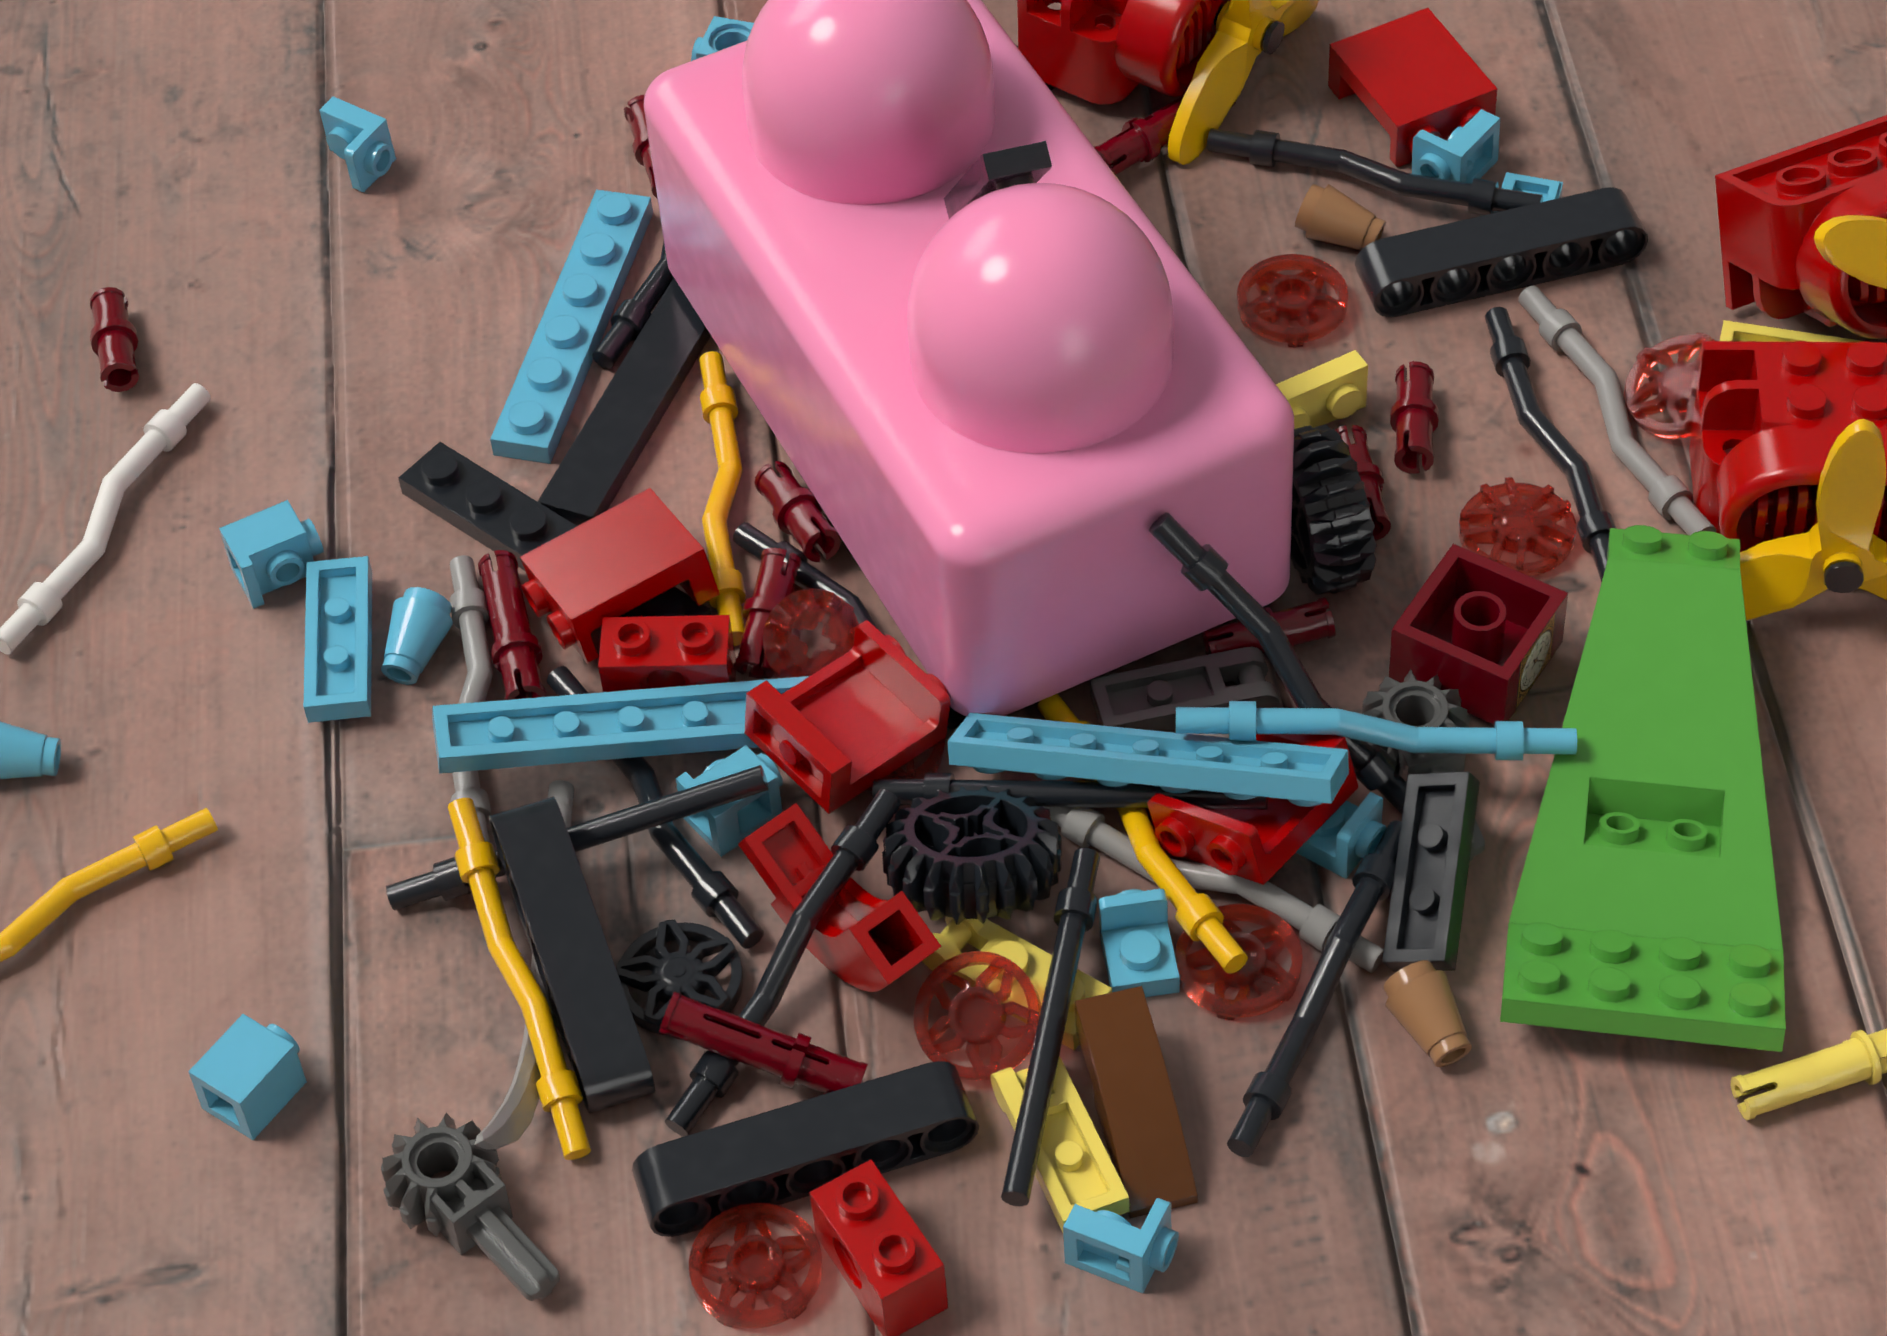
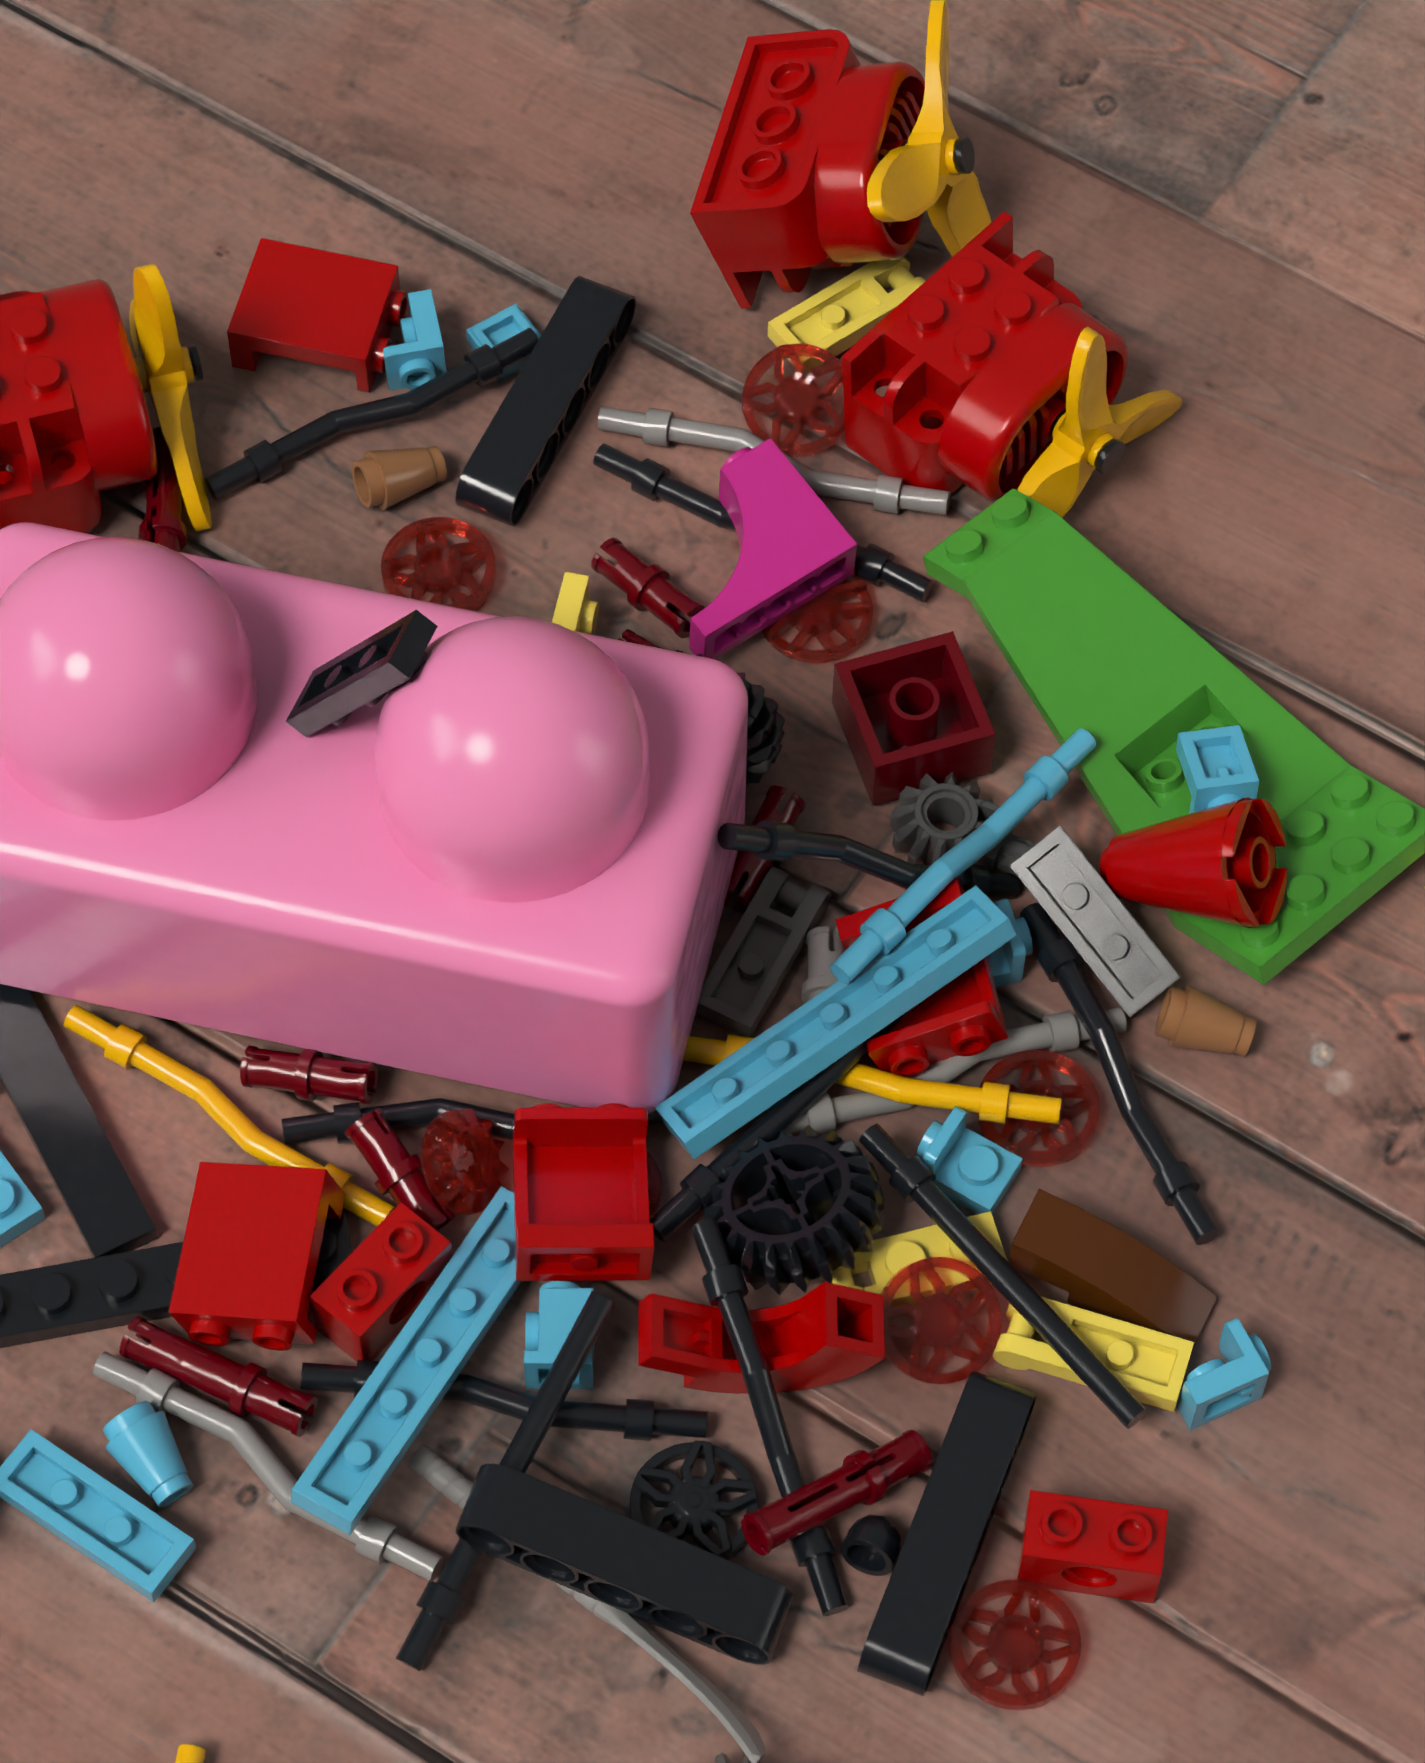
camera: 55 degrees left, 10 degrees up
(557, 1086) = (730, 1668): yellow bar -> none
(746, 1099) = (871, 1545): none -> black hinge
(1517, 461) = (786, 544): none -> dark pink arch
(1550, 893) = (1204, 864): none -> red cone
(1644, 852) = (1216, 766): none -> medium azure bracket

